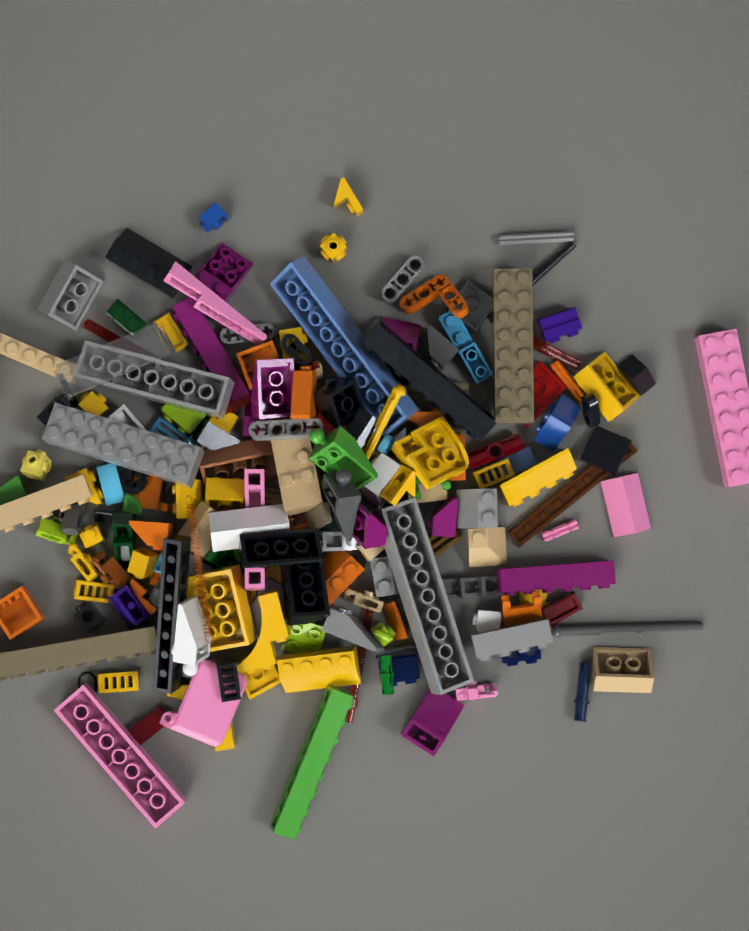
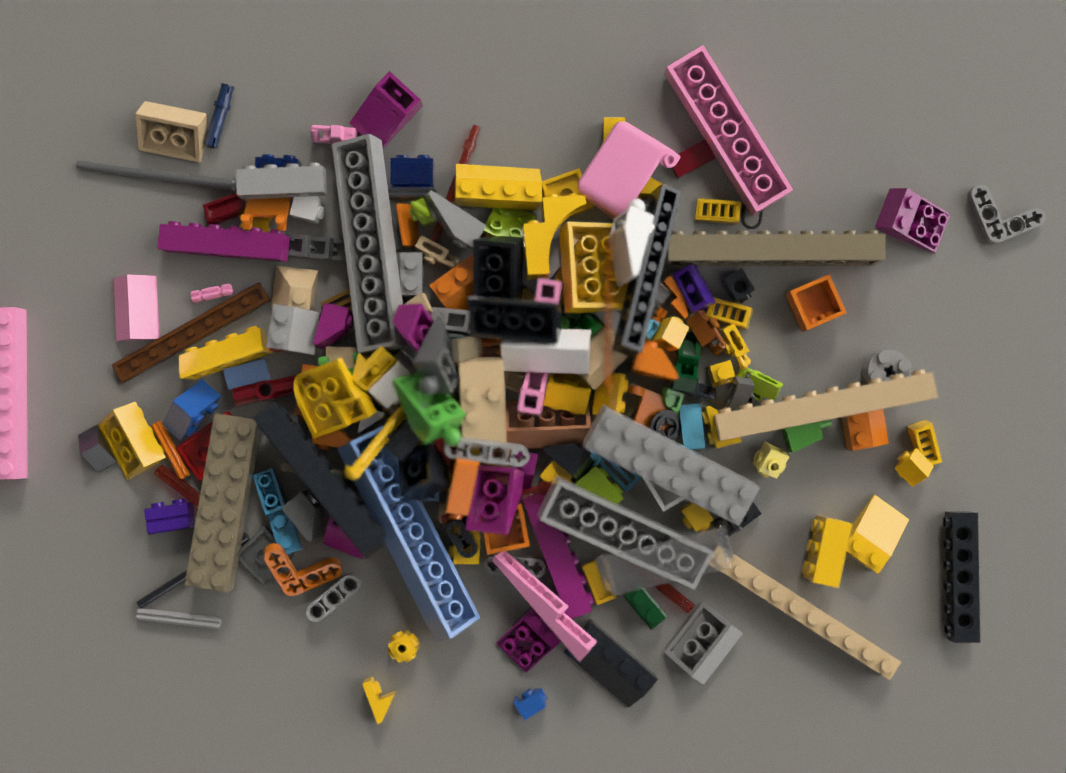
camera: 165 degrees left, 0 degrees up
(223, 664) = (597, 203): black slope -> none
(311, 762) = (523, 89): bright green brick -> none
(386, 444) = (381, 416): medium azure tile -> none
(386, 674) = (425, 166): green pin -> none
(481, 485) = (289, 359): yellow slope -> none
(590, 410) = (152, 417): black beam -> none
(606, 450) = (144, 370): black tile -> none

